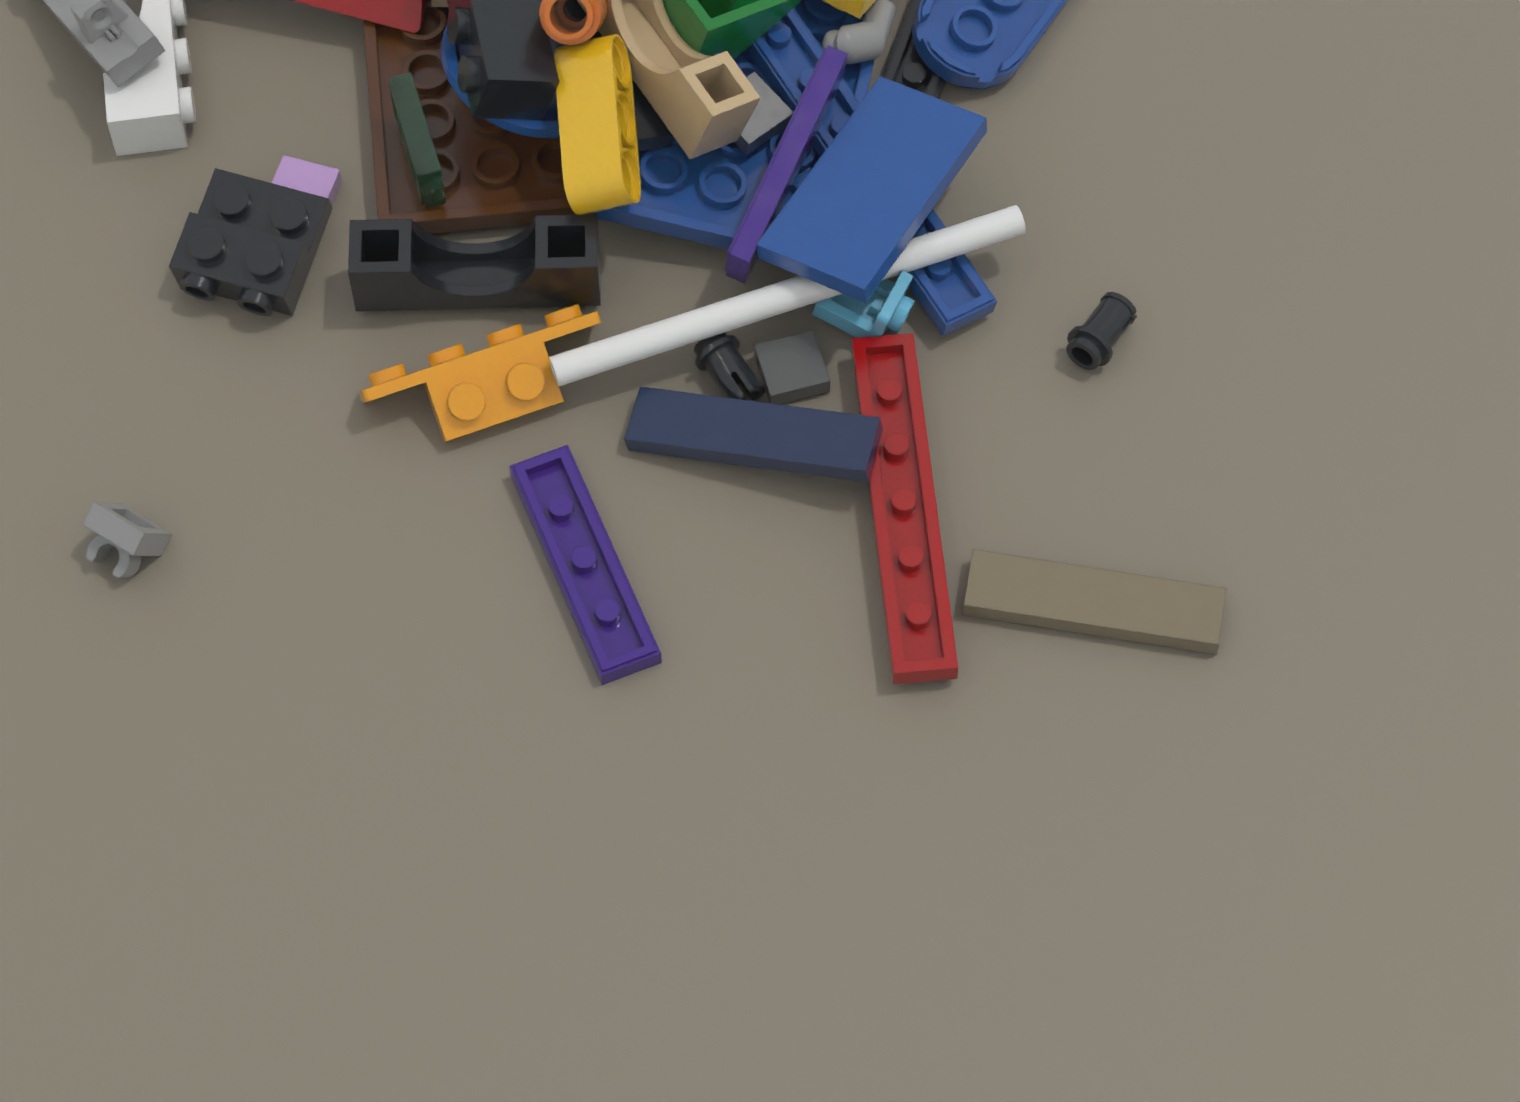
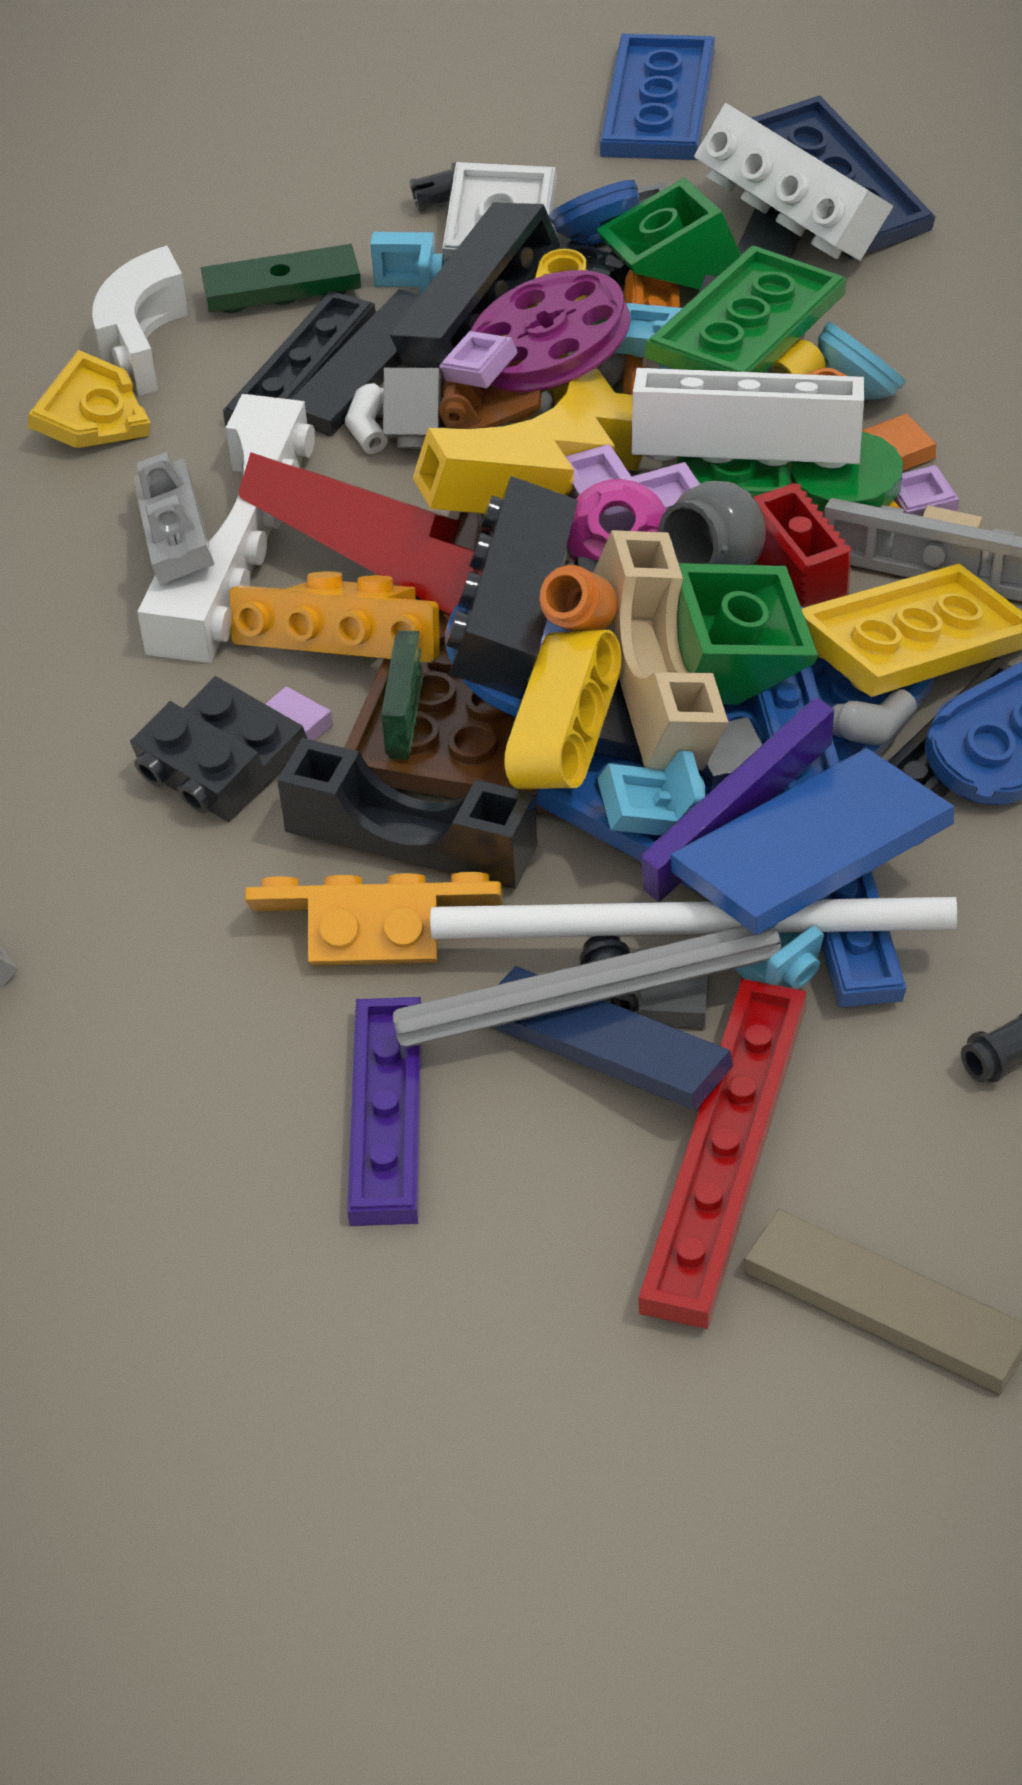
camera: 25 degrees right, 15 degrees down
(304, 68) = (334, 616): none -> light orange bracket
(708, 184) = (650, 798): none -> medium azure bracket
(716, 394) = (583, 984): none -> light grey axle

